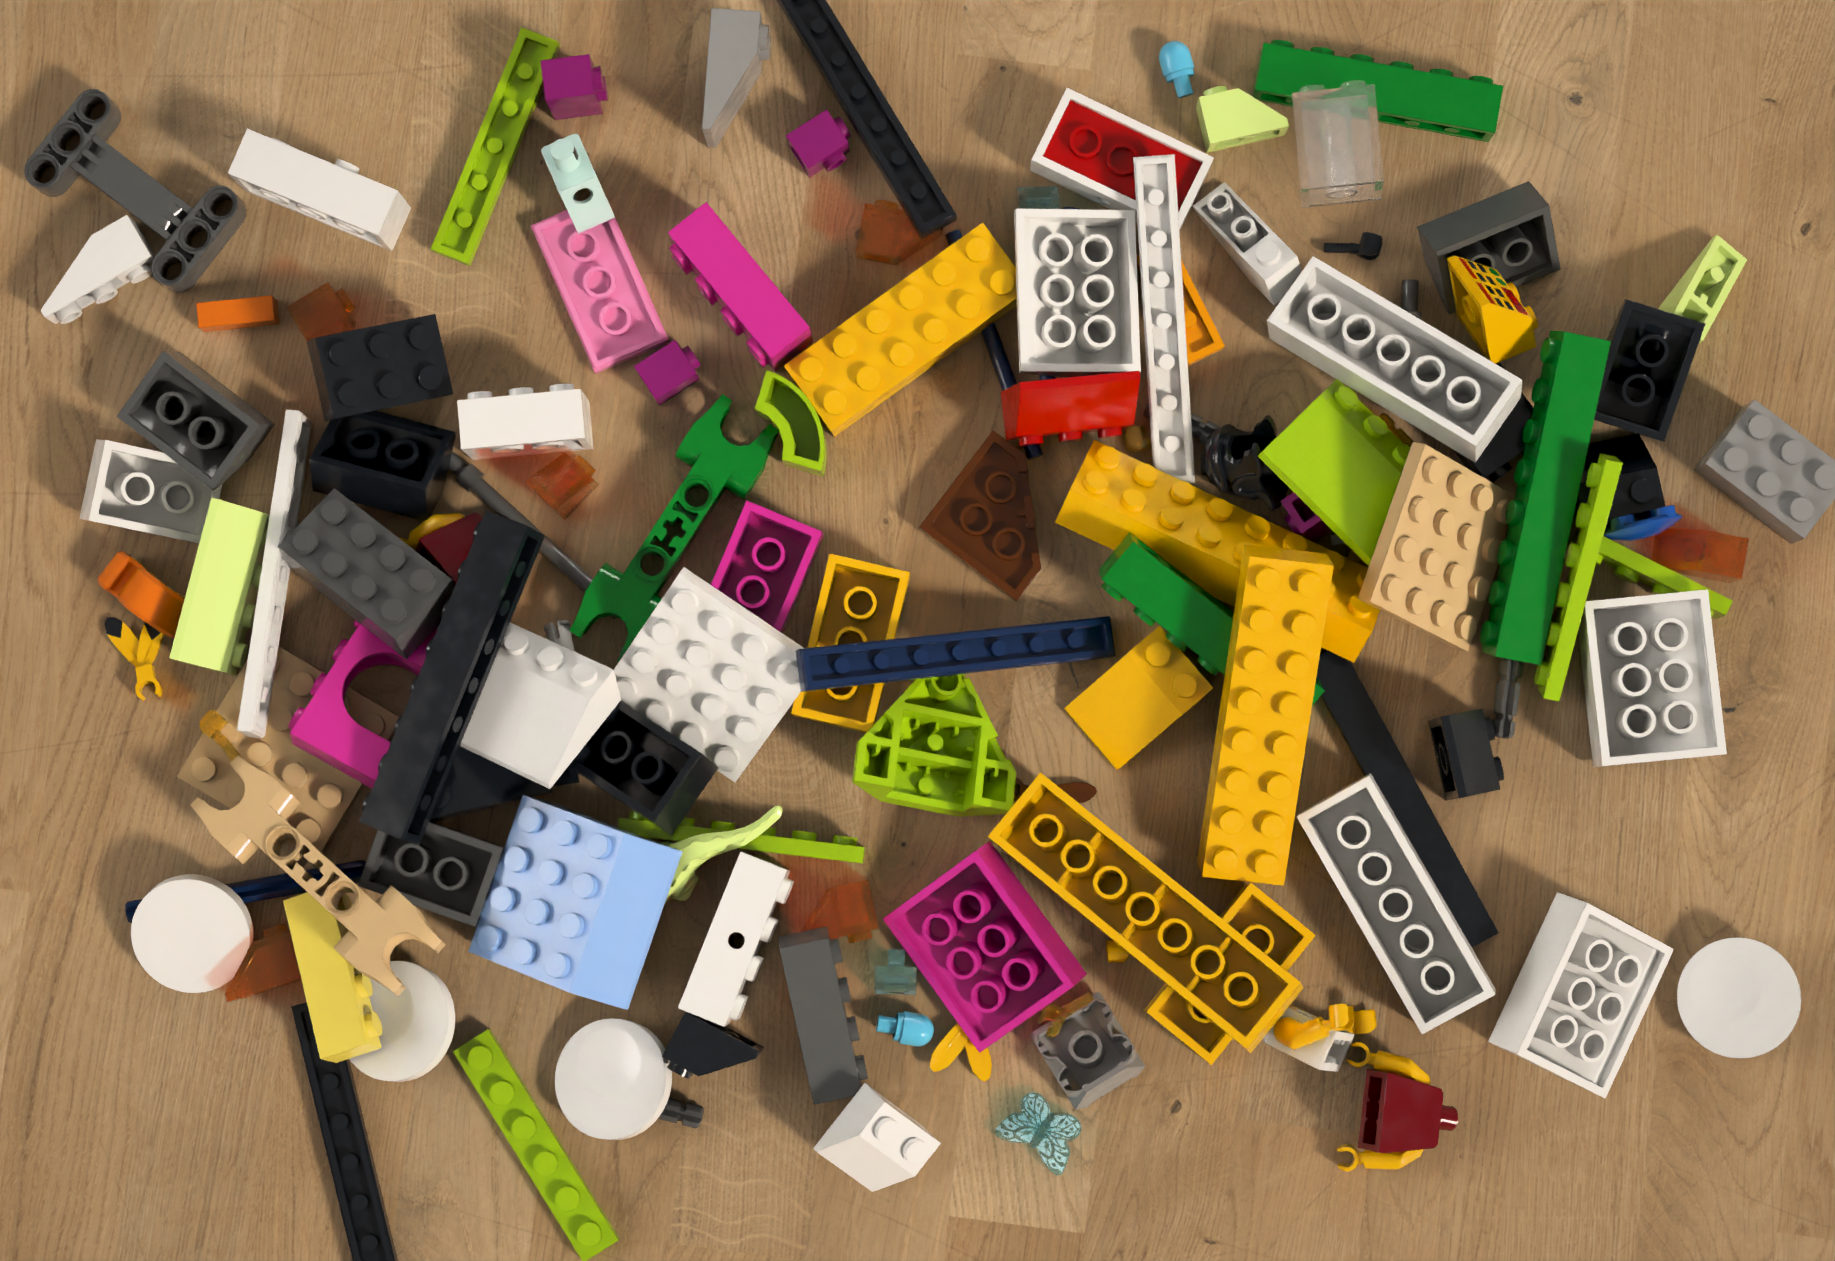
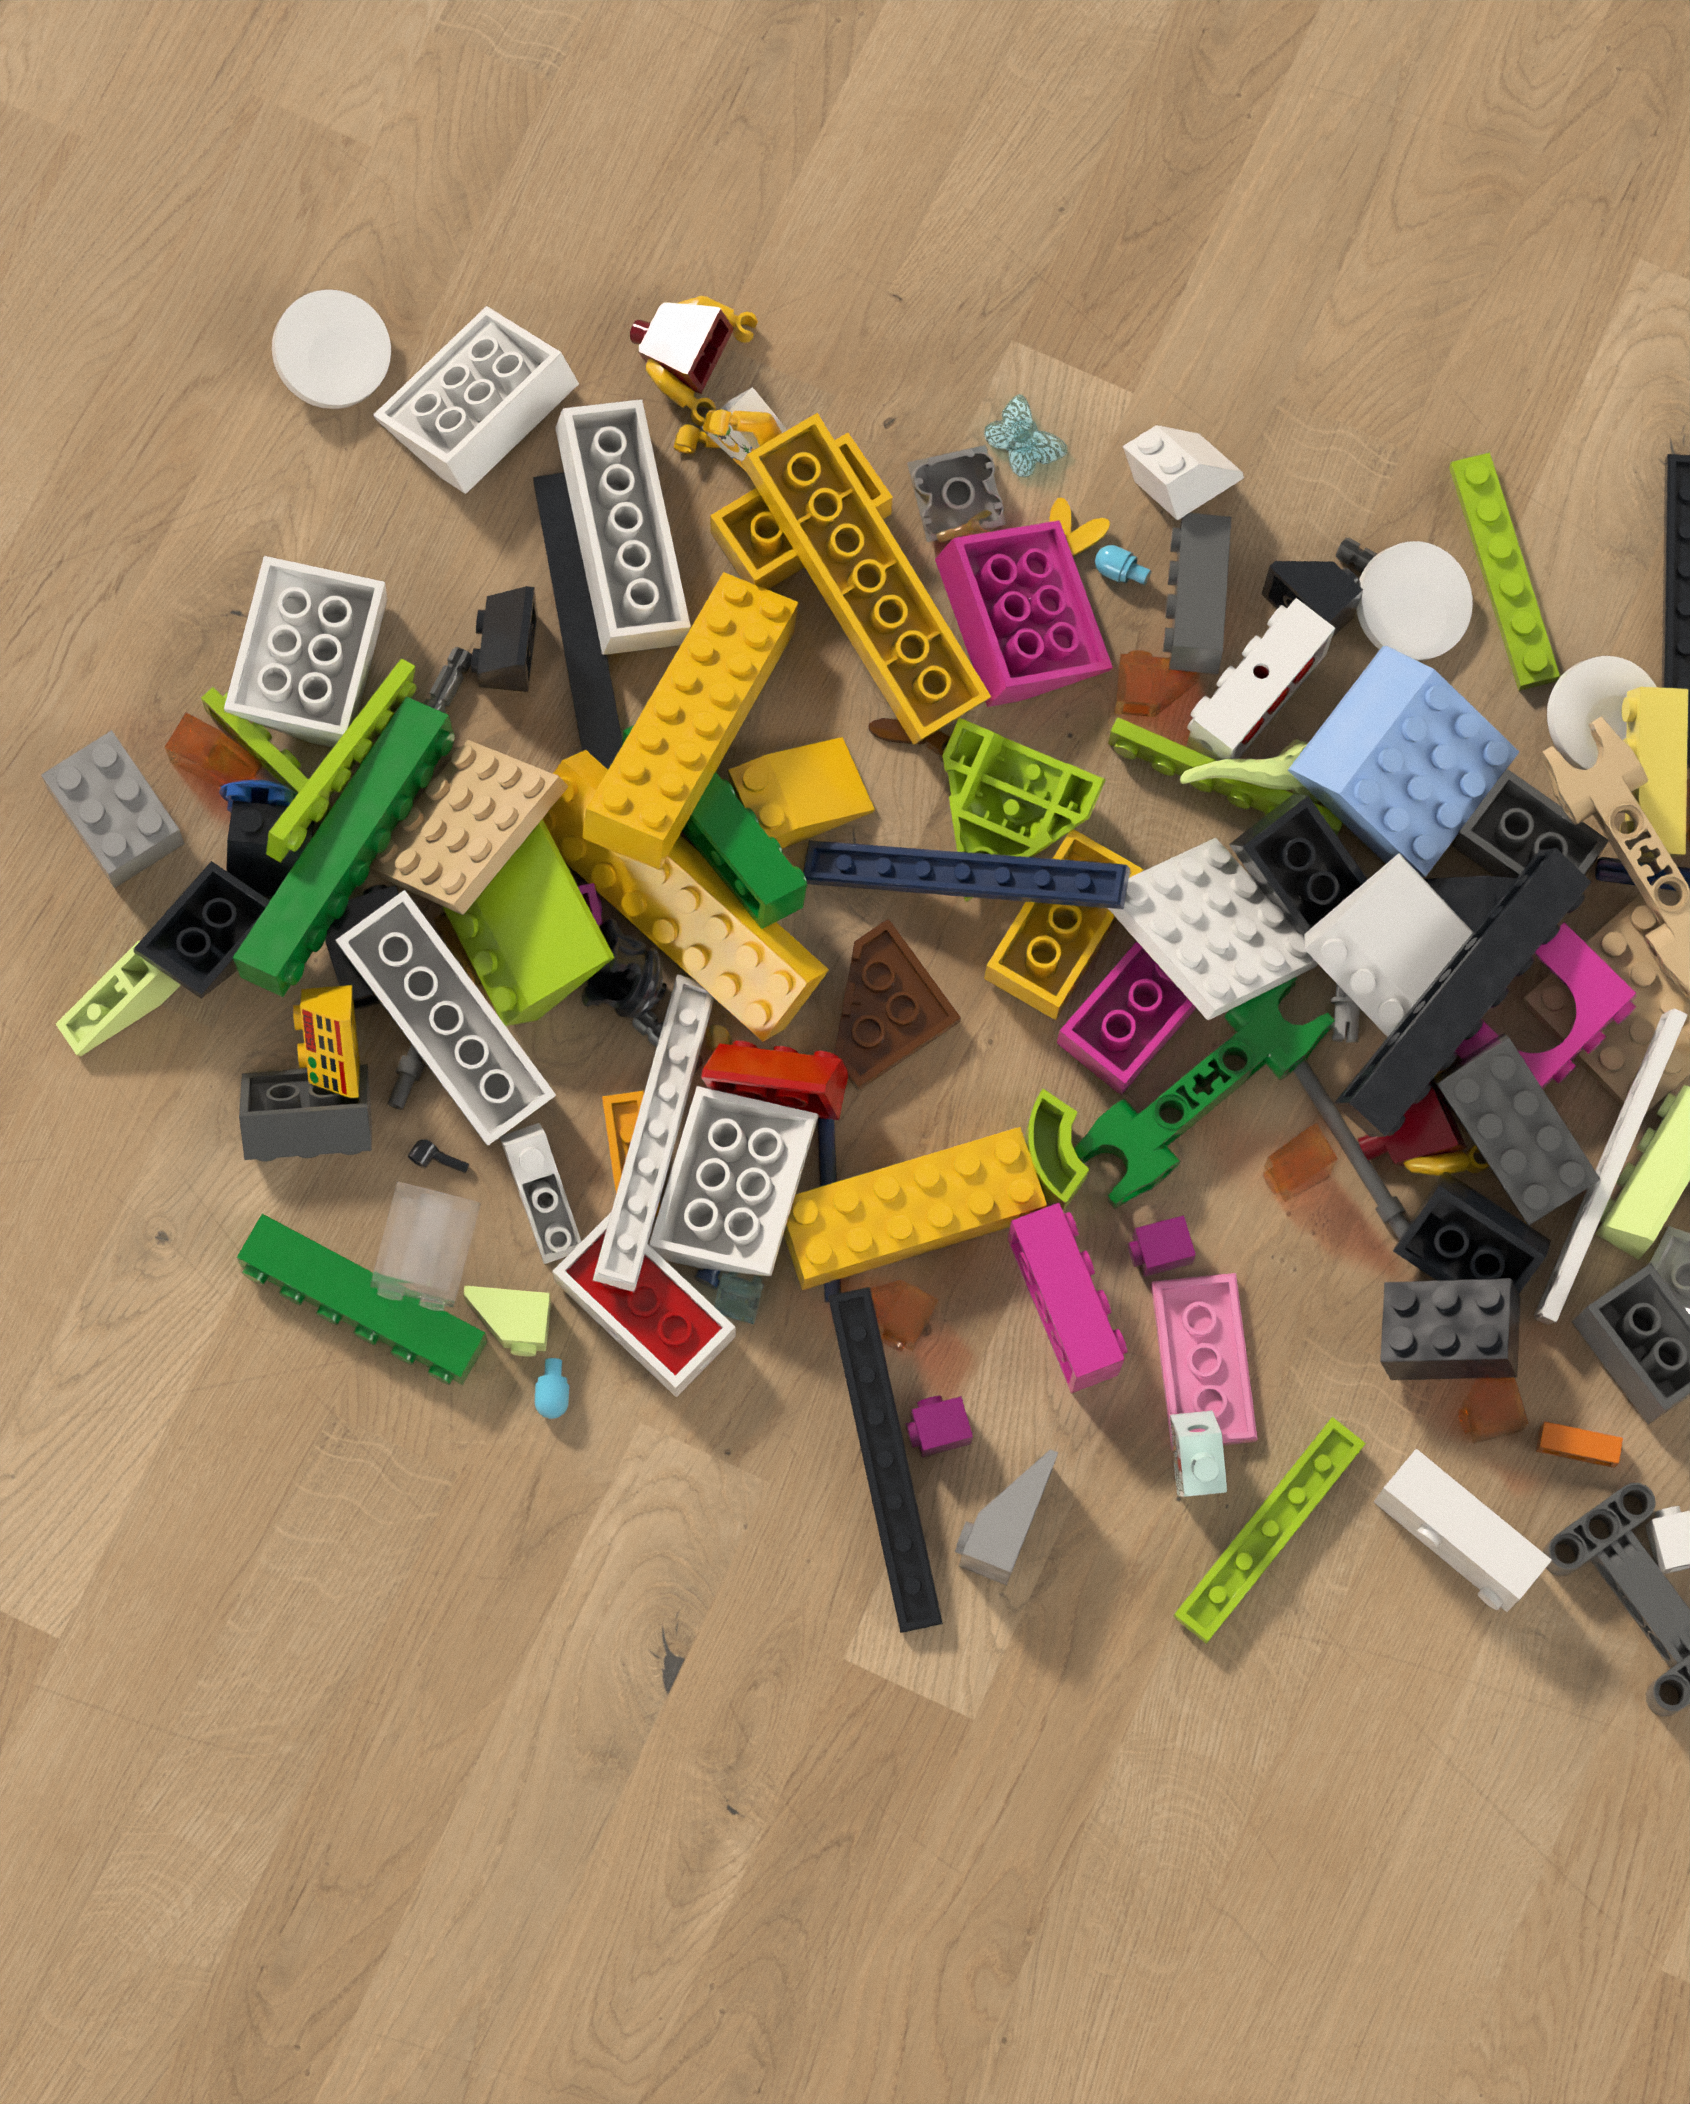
camera: 170 degrees left, 10 degrees down
(525, 422) = (1320, 1232): white brick -> none
(573, 87) = (1173, 1554): magenta brick -> none
(895, 977) = (1116, 612): clear light blue tile -> none

